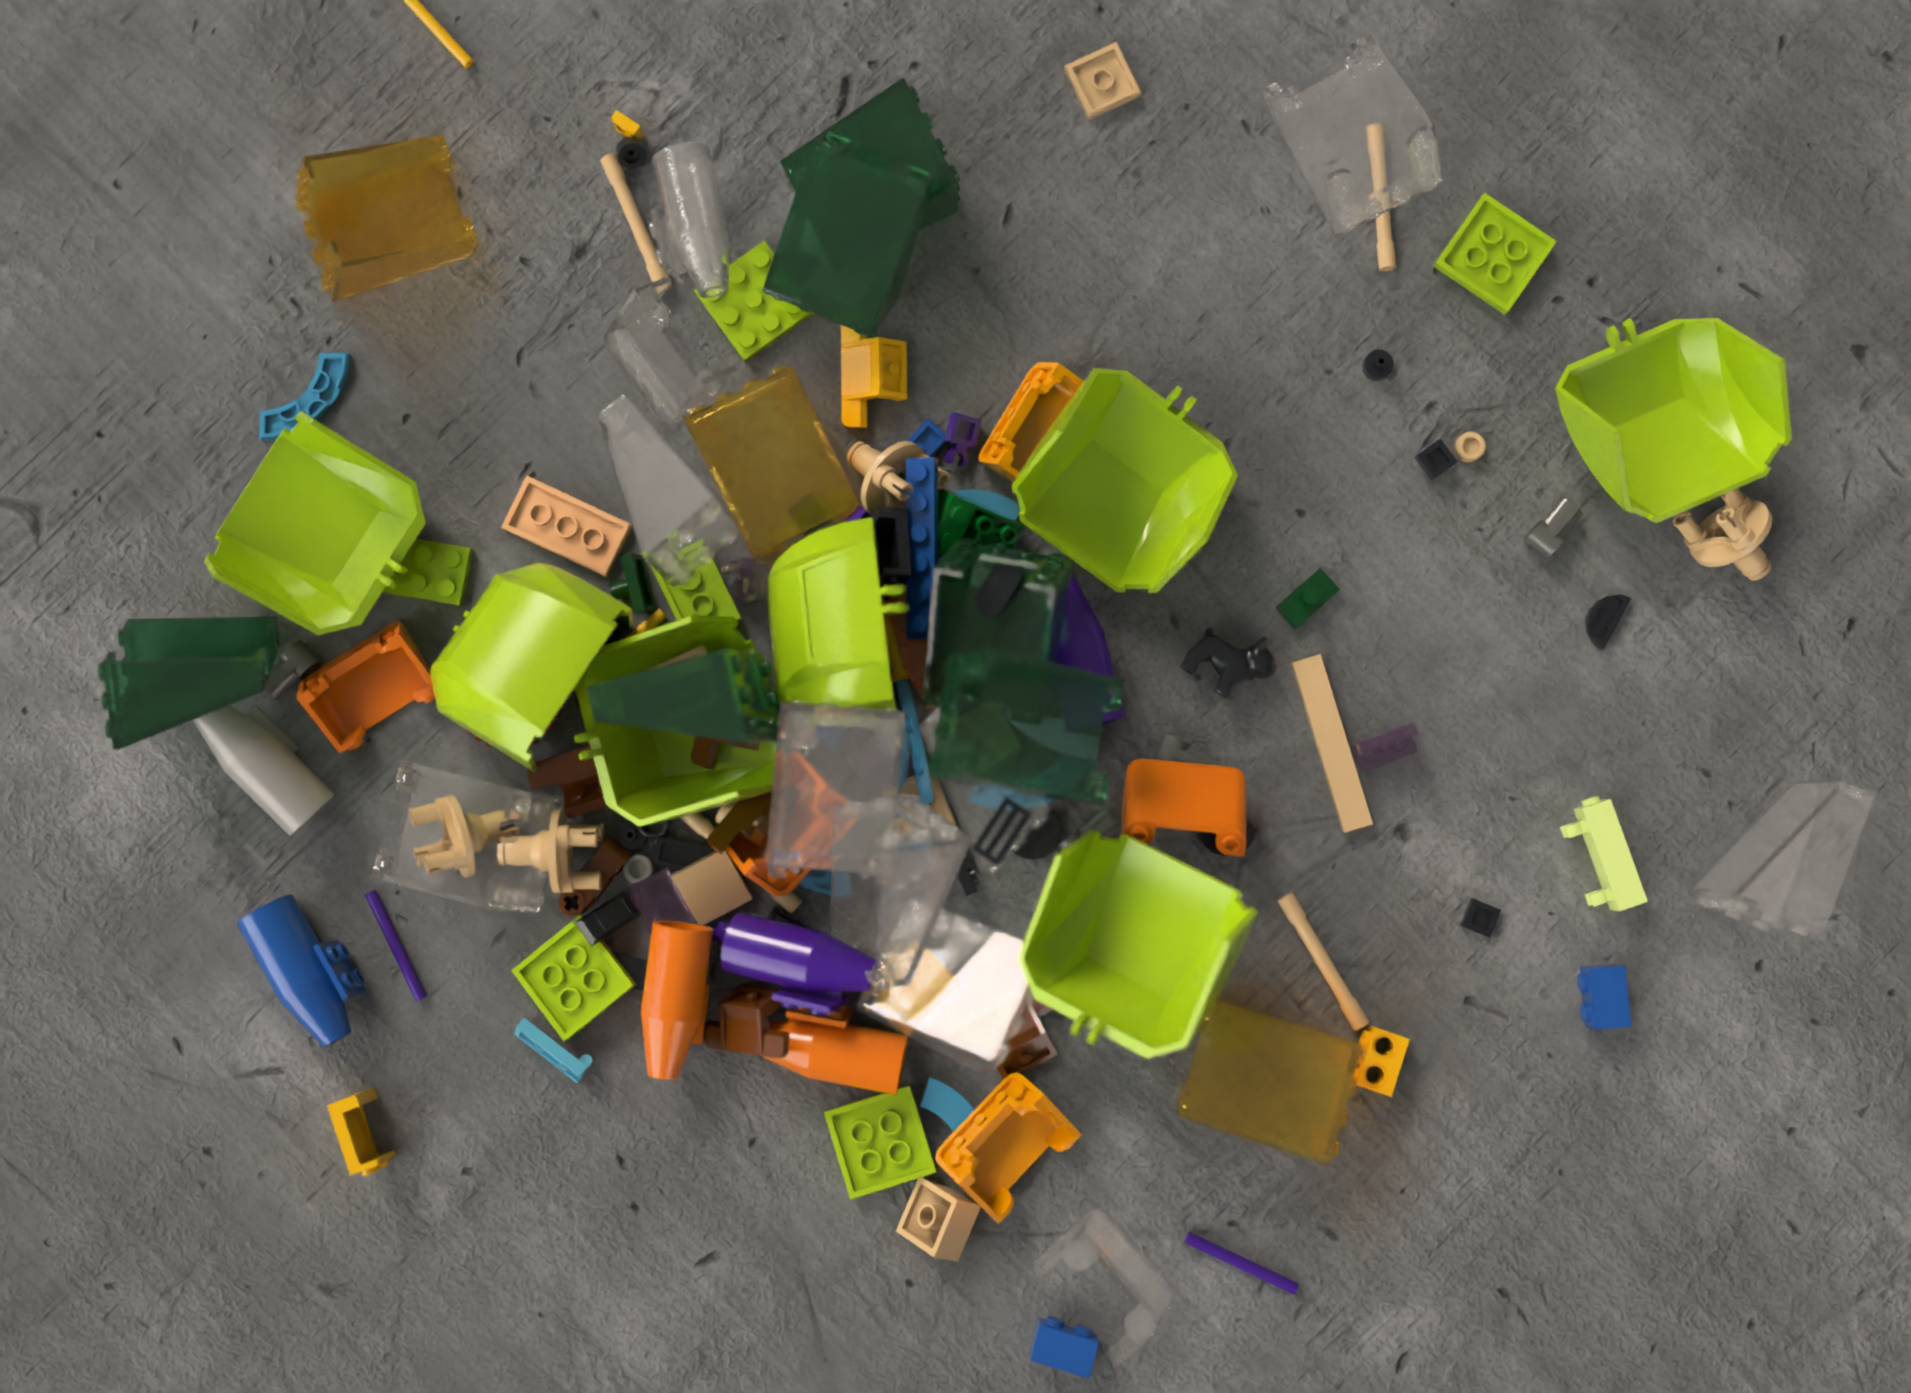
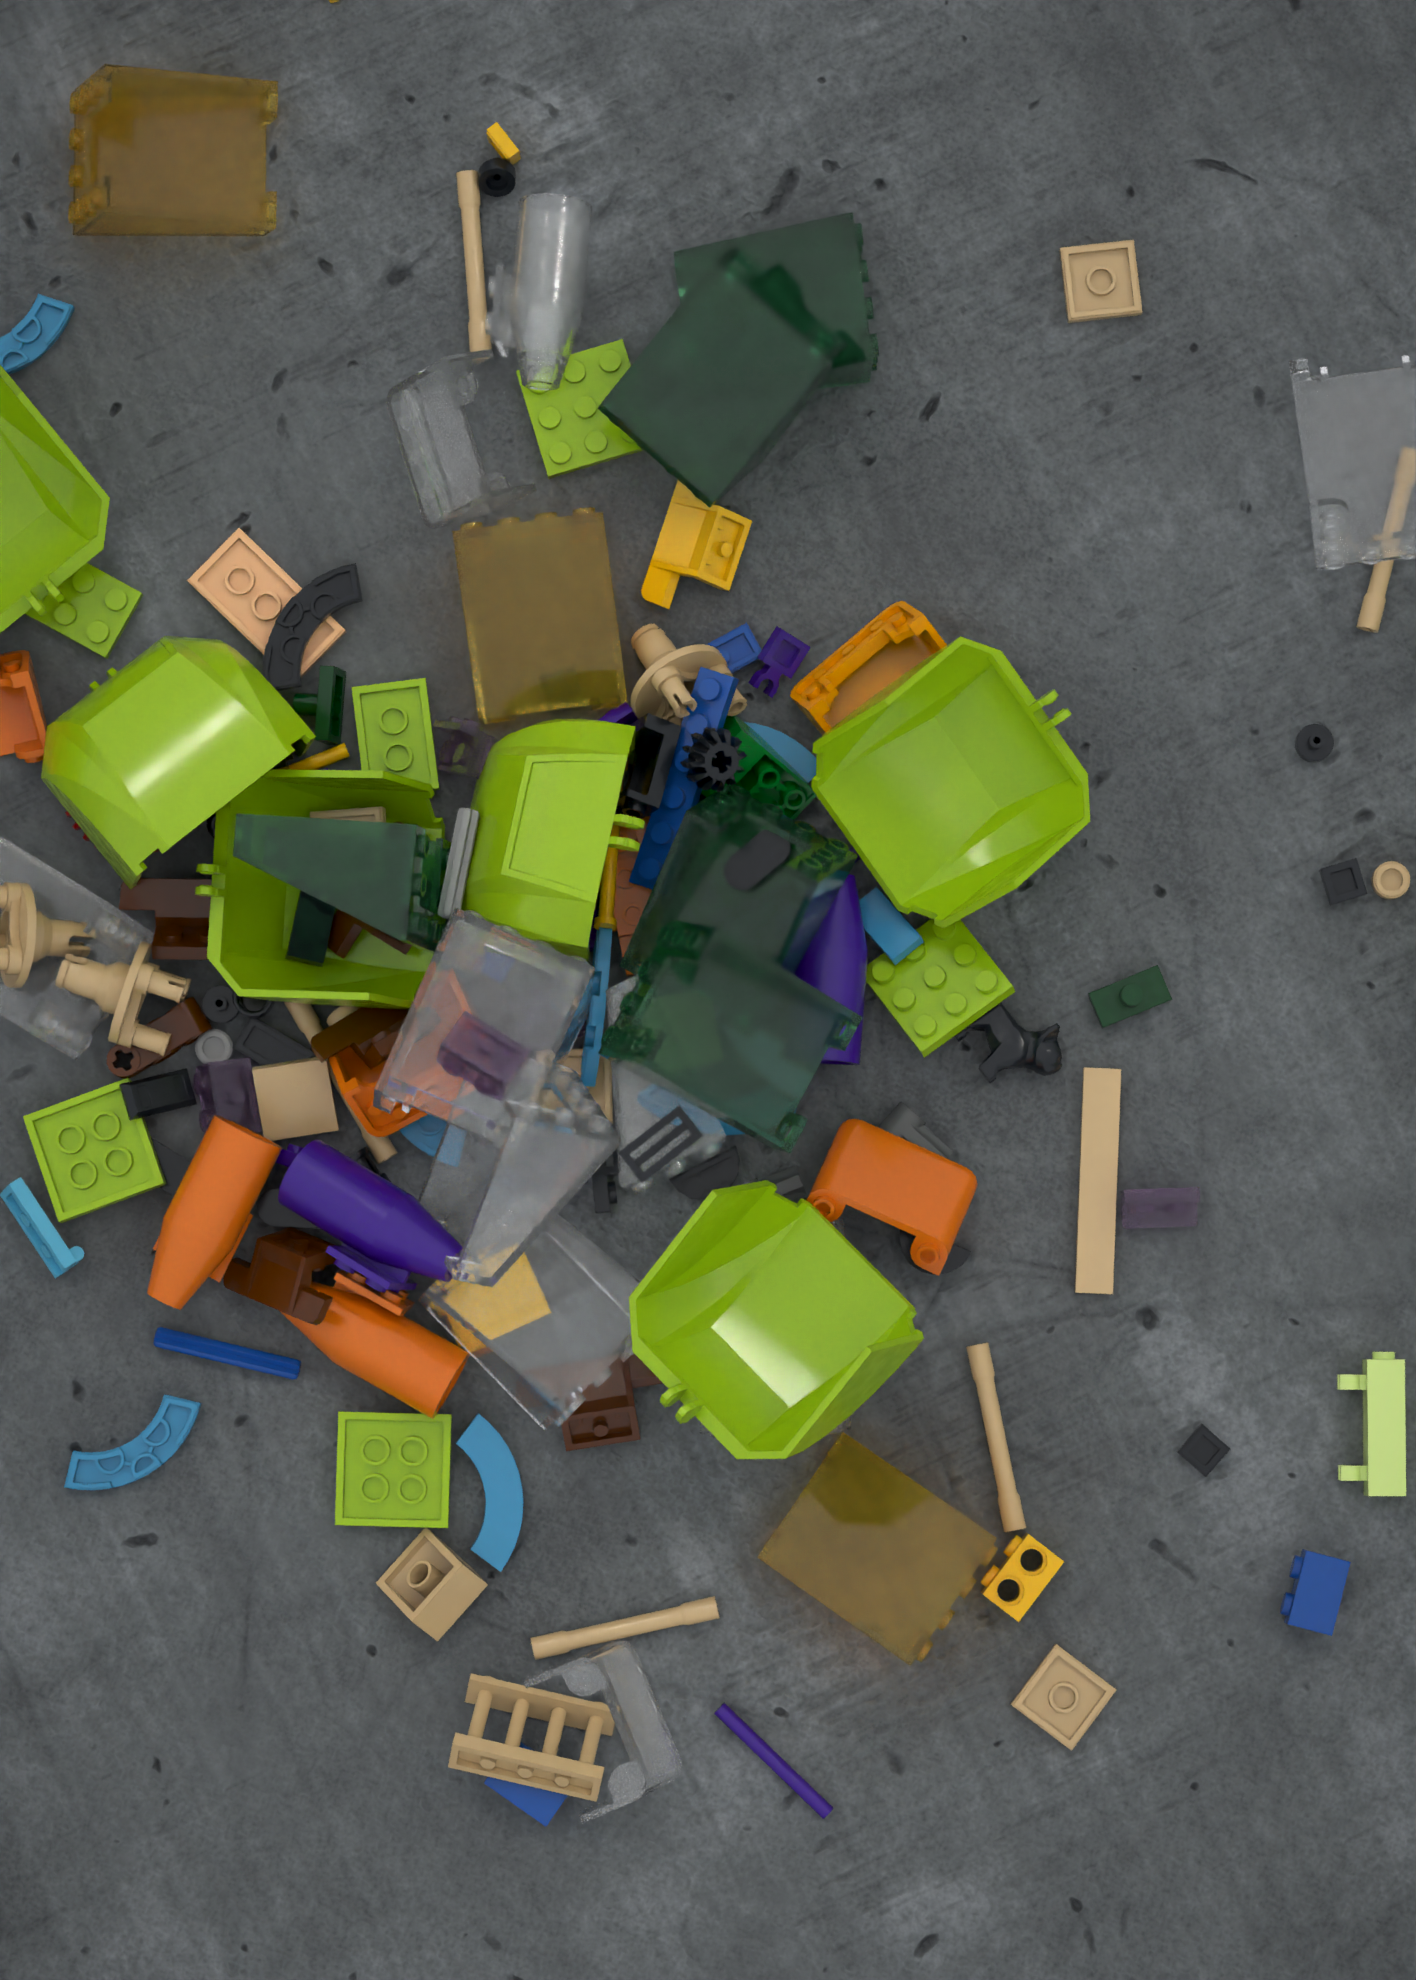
camera: 15 degrees right, 0 degrees up
(594, 532) = (300, 620): none -> black tile
(667, 504) = (400, 627): clear windscreen -> none
(680, 758) = (310, 930): none -> black tile
(685, 1197) = (139, 1456): none -> dark azure tile
(725, 1095) = (227, 1353): none -> blue axle
(772, 666) = (458, 861): none -> light grey axle
(840, 810) = (481, 1056): none -> clear purple bracket
(947, 532) = (717, 745): none -> black gear
(1003, 1141) = (541, 1519): light orange windscreen -> none
(1060, 1340) = (526, 1766): none -> tan fence
(1112, 607) = (888, 926): none -> dark azure tile
(1136, 1175) = (565, 1641): none -> tan piece
(1163, 636) = (939, 985): none -> lime plate
(1441, 1139) = (1063, 1697): none -> tan tile

